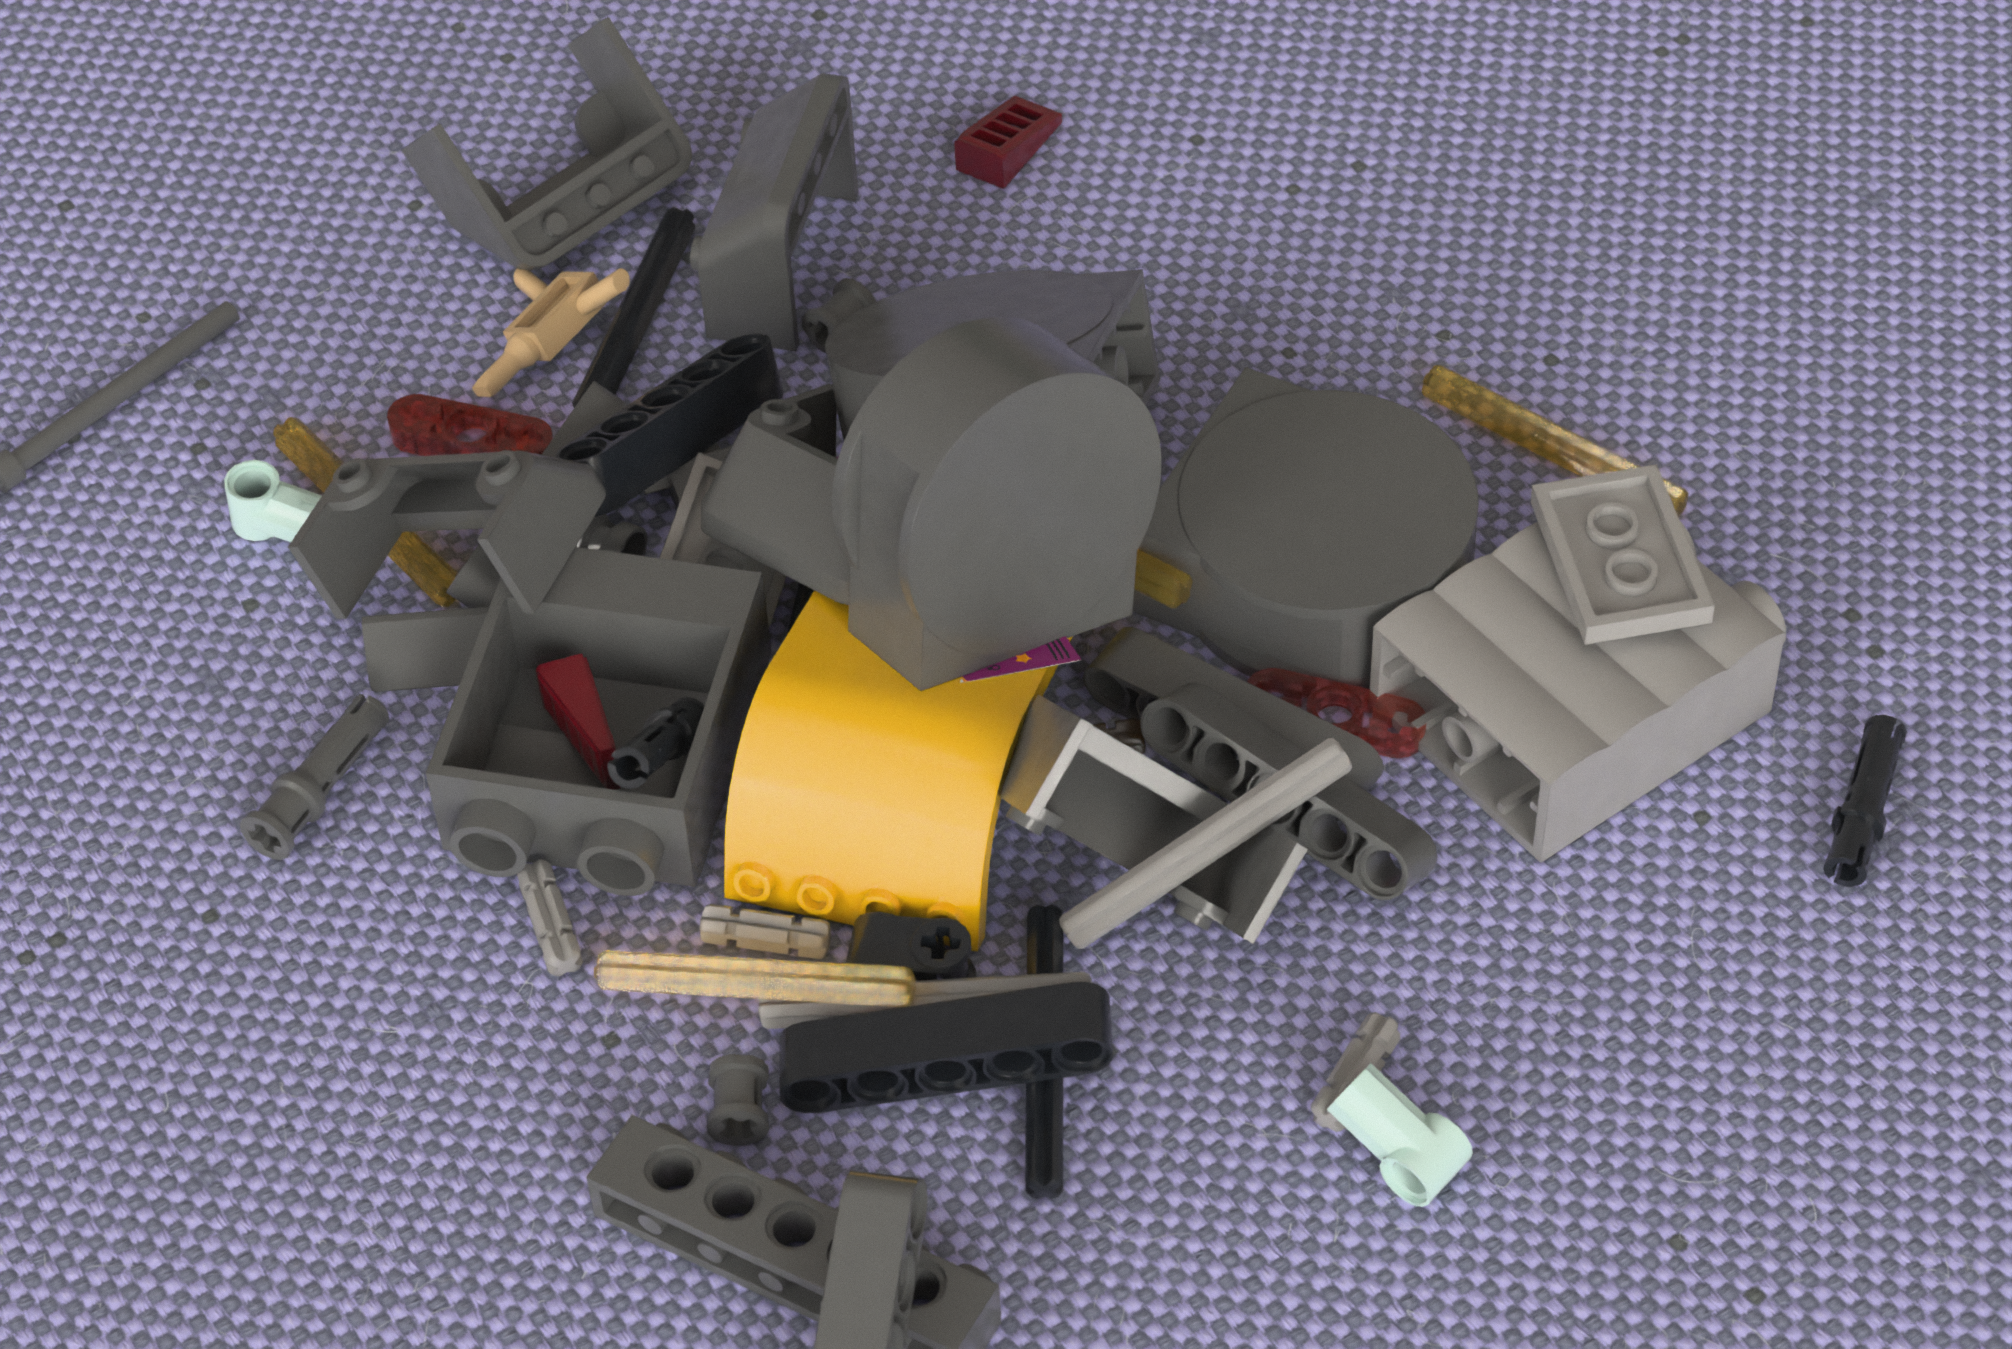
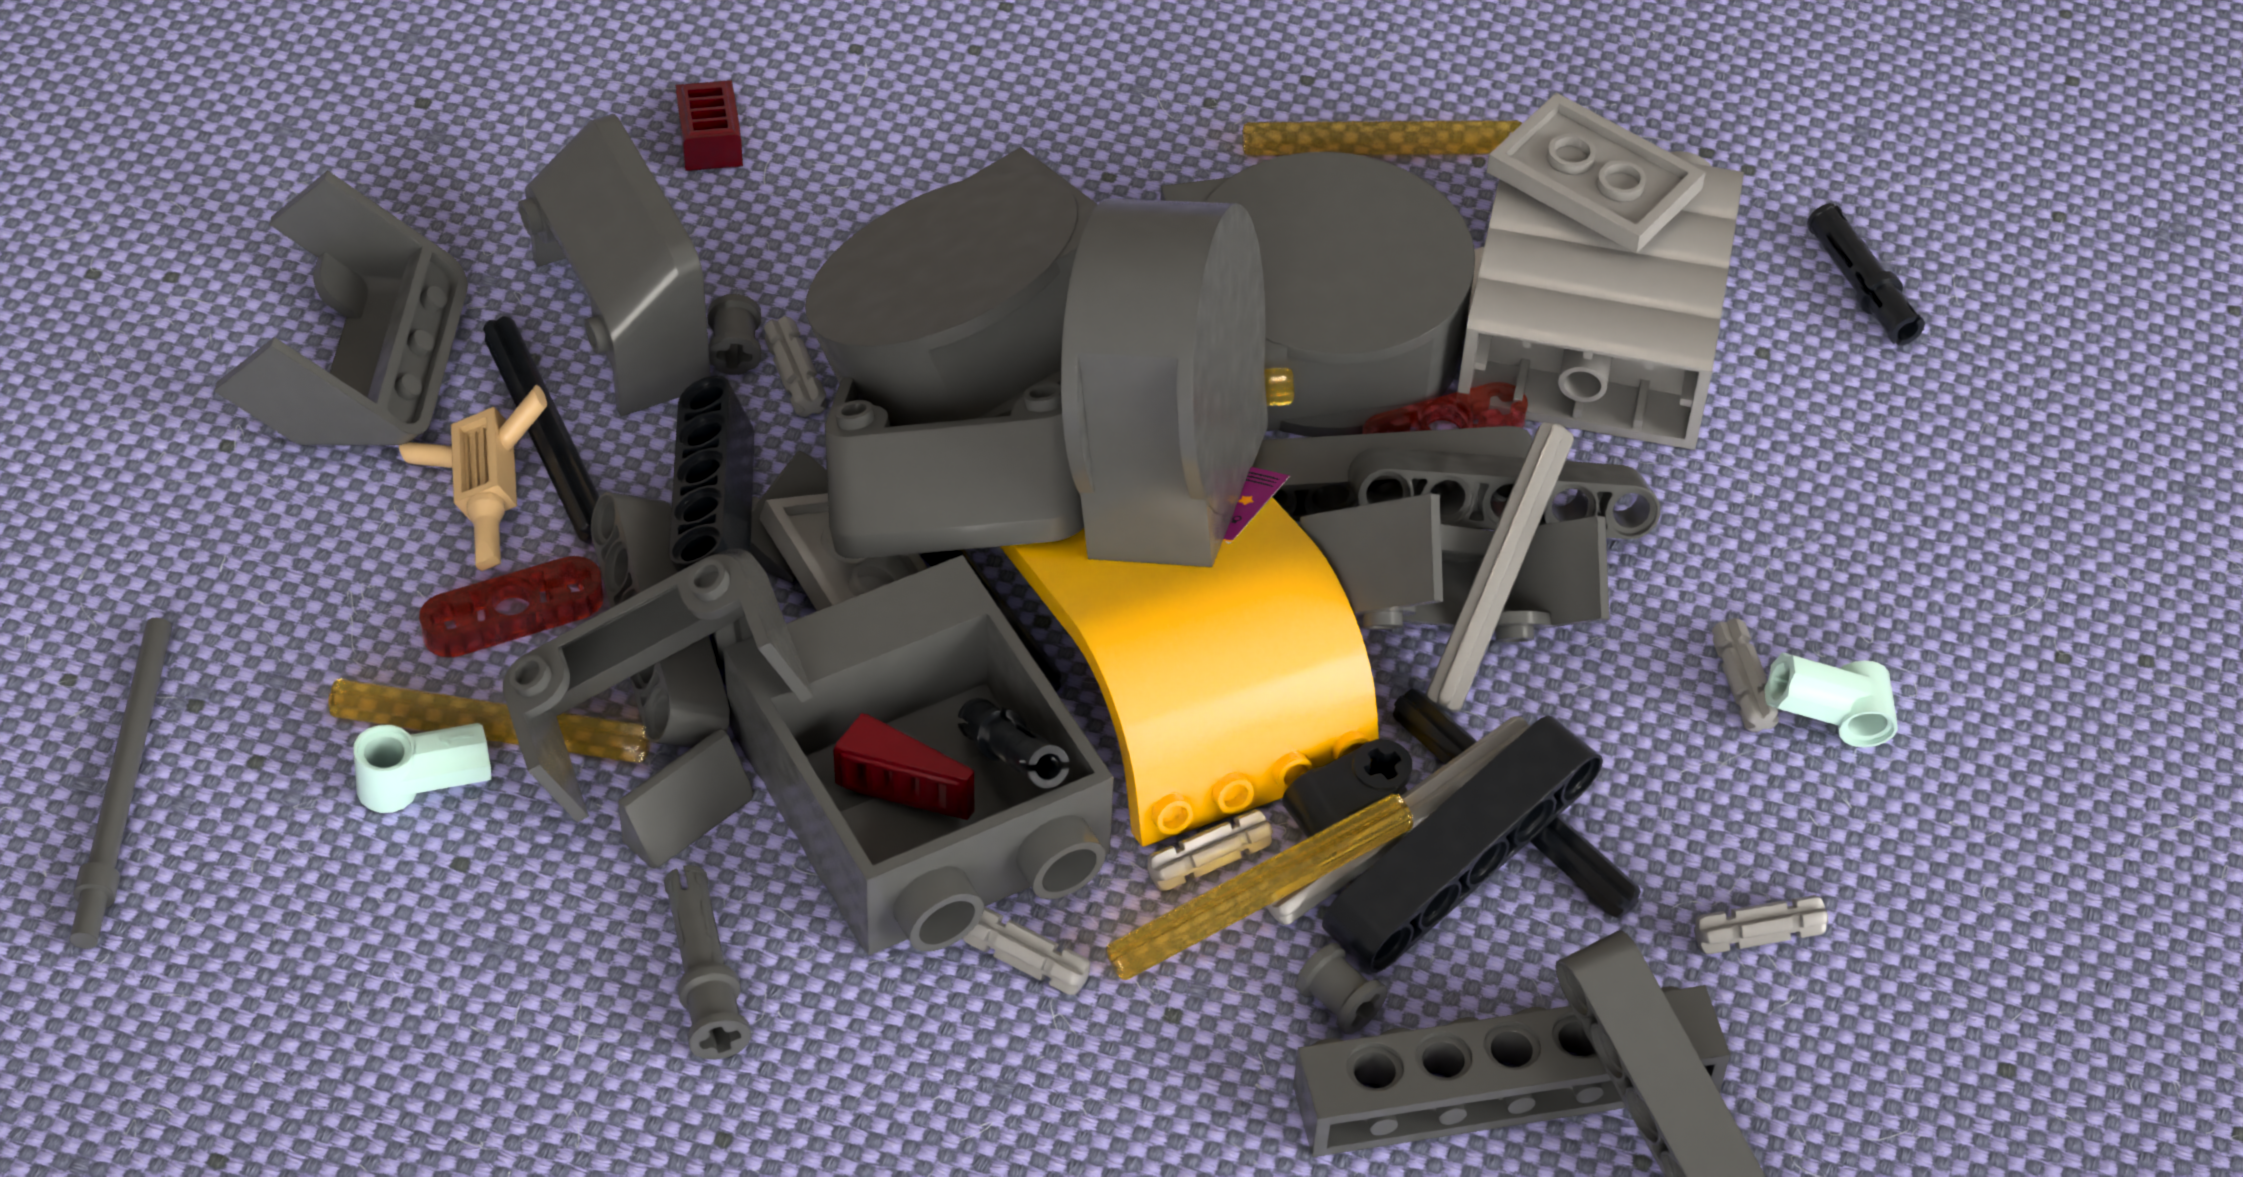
camera: 45 degrees left, 0 degrees up
(1134, 1279) = (1760, 924): none -> light grey axle

